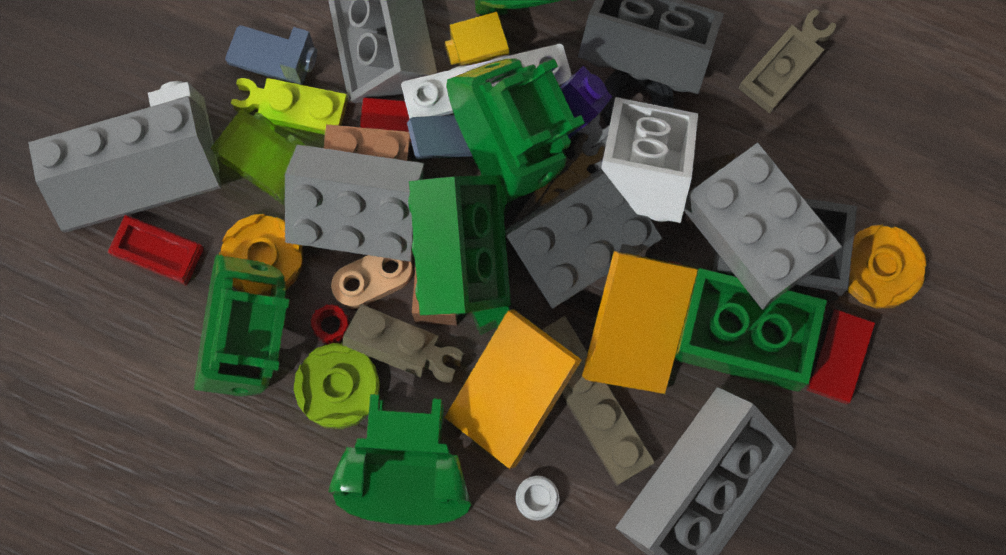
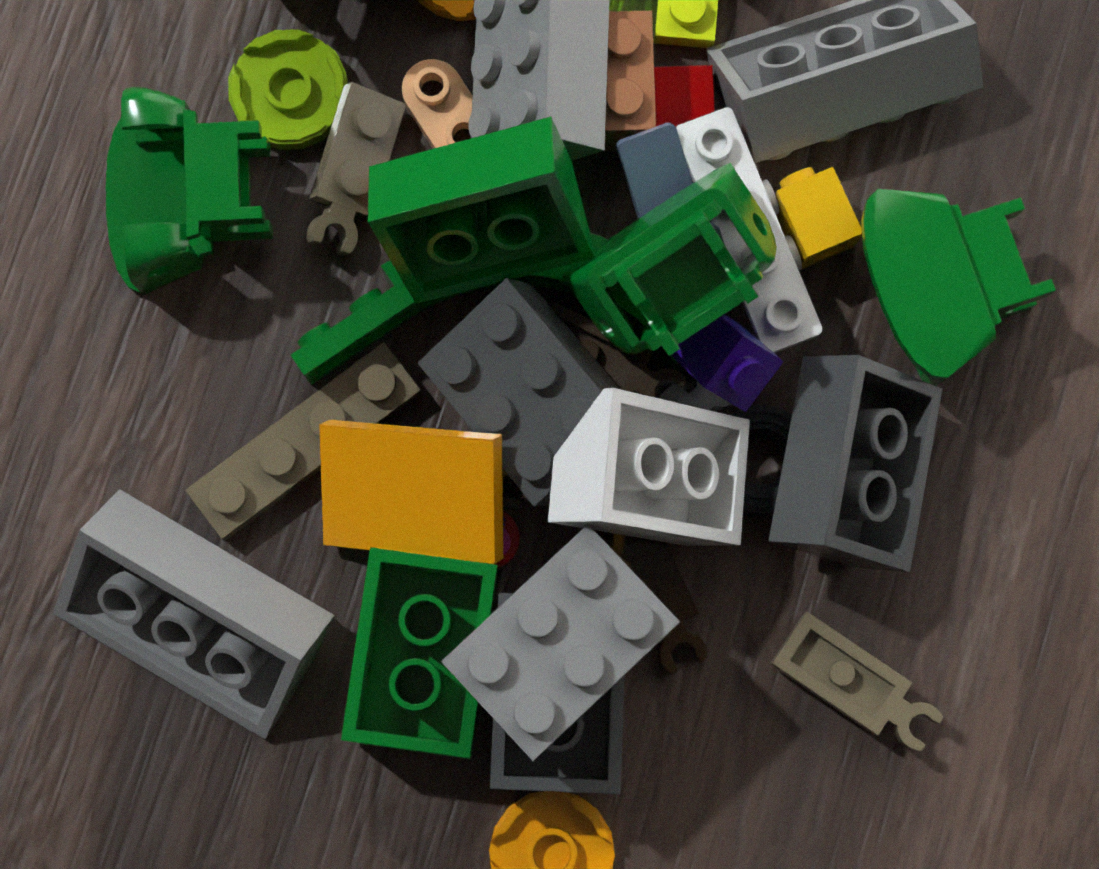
camera: 80 degrees right, 5 degrees up
(322, 313) = (360, 55): red axle -> none
(512, 388) = (297, 321): light orange tile -> none
(537, 498) = (159, 382): white tile -> none
(840, 356) = (406, 798): red tile -> none

